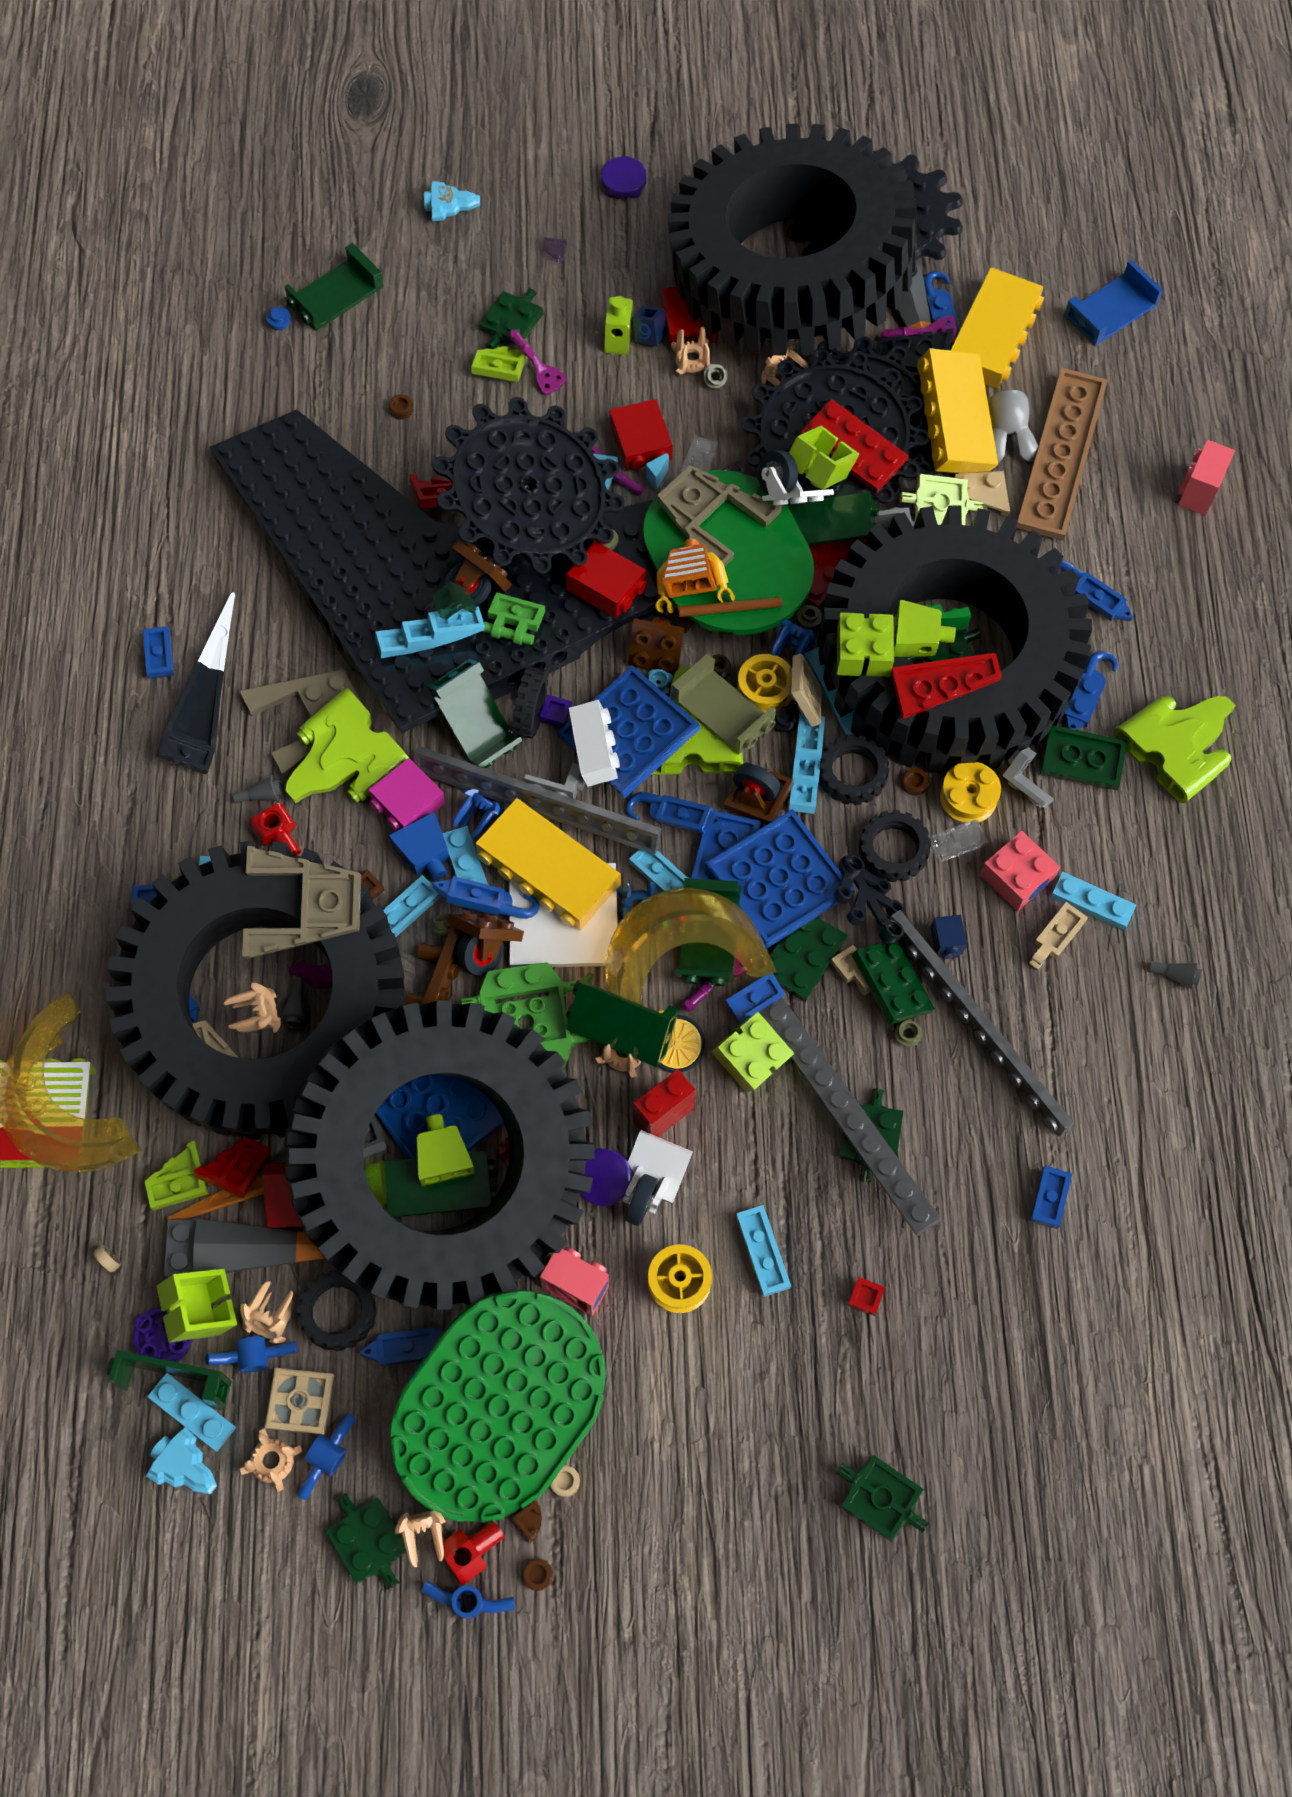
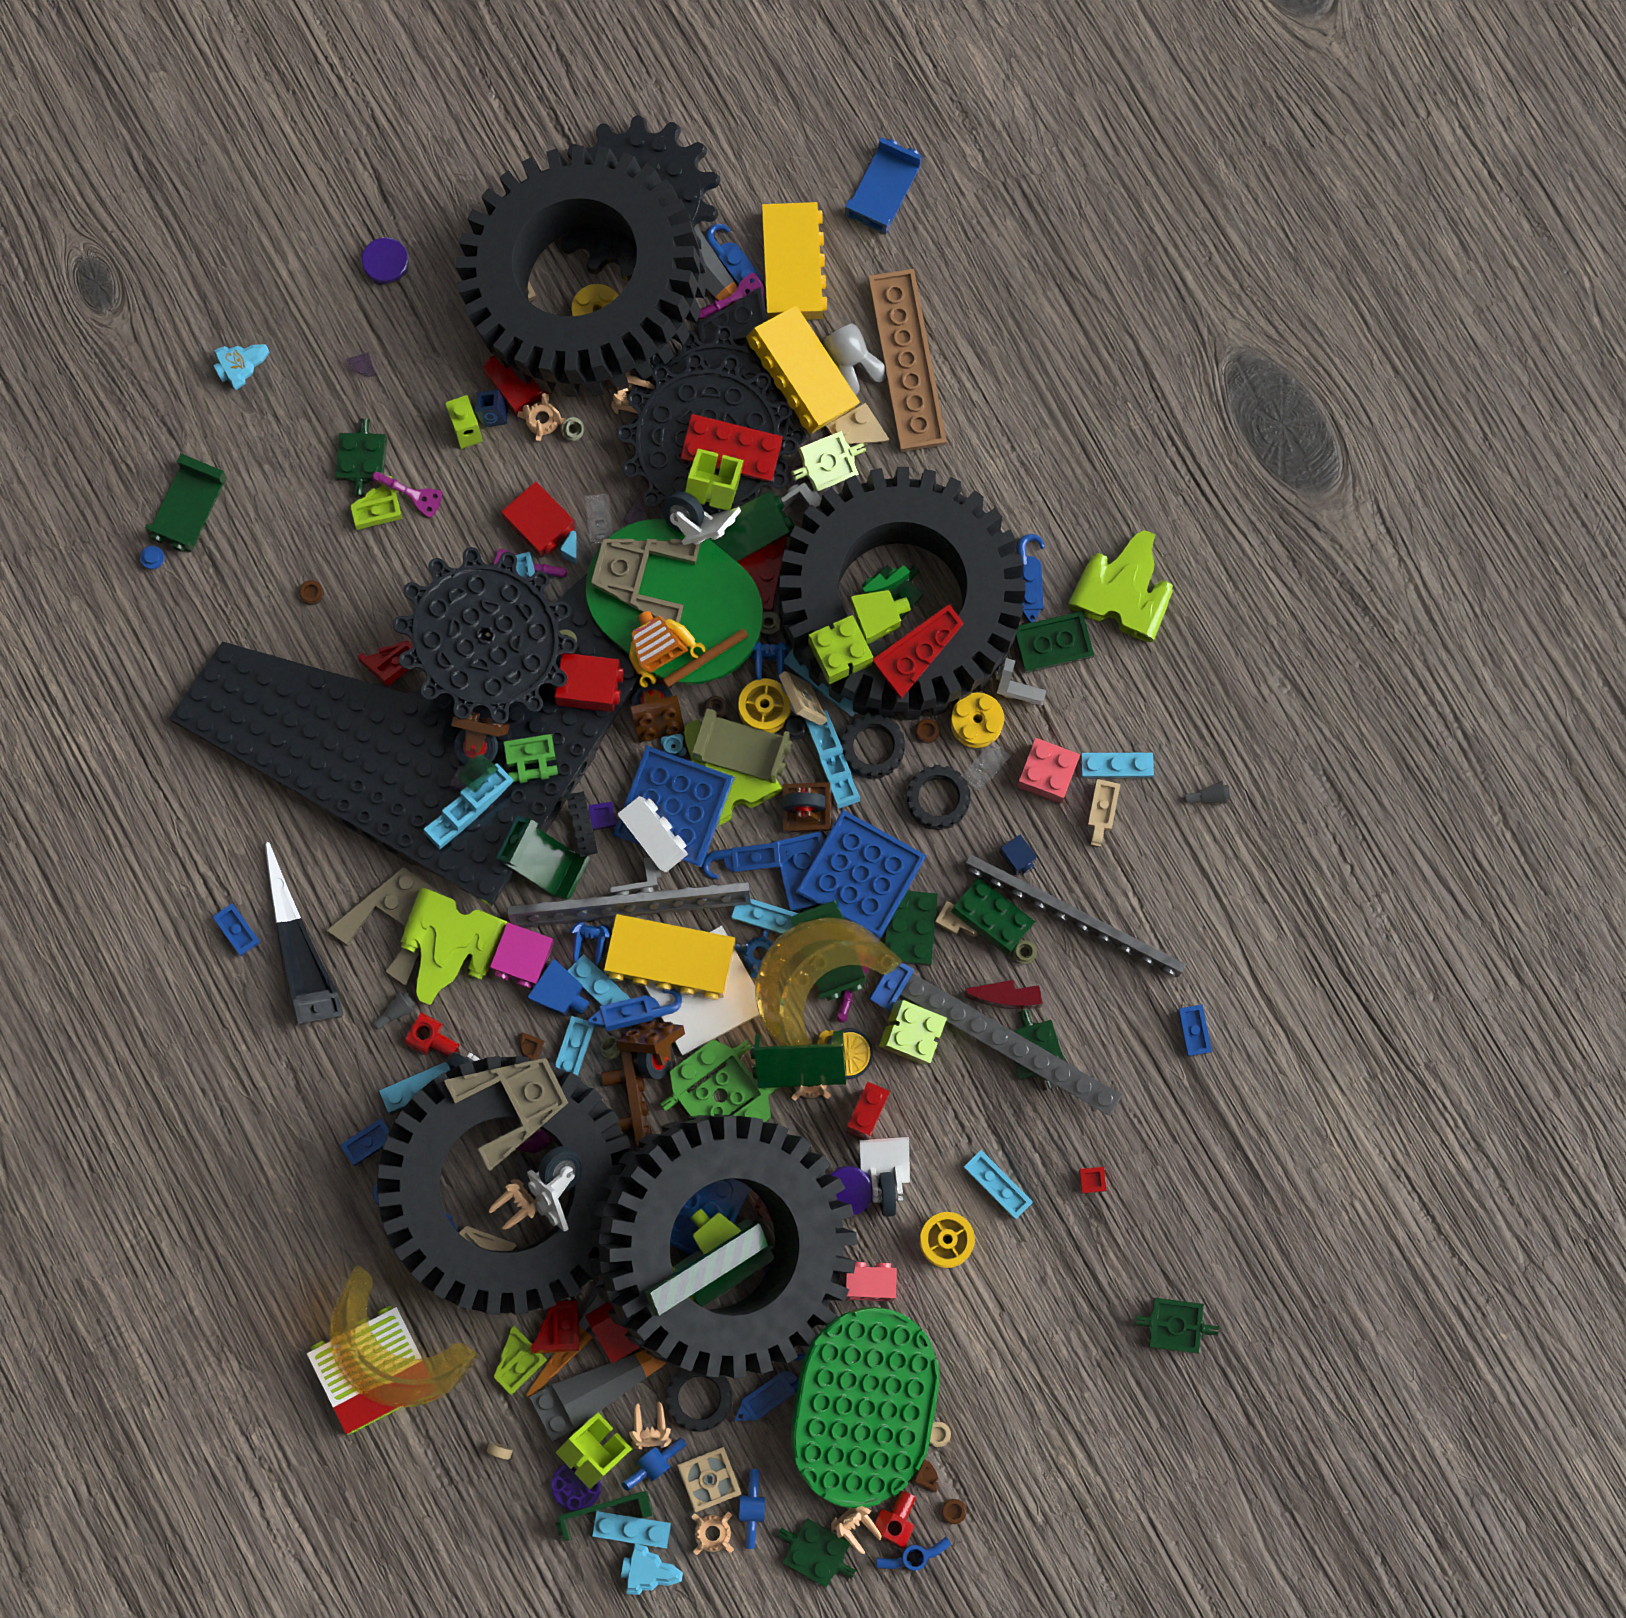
camera: 30 degrees left, 10 degrees up
(311, 991) = (557, 1173): none -> plate
(400, 1161) = (706, 1269): none -> tile
(853, 871) = (919, 839): black plant -> none
(866, 1065) = (1006, 996): none -> dark red slope
(1099, 595) = (993, 483): blue plate -> none
(1205, 476) = (1039, 330): coral brick -> none

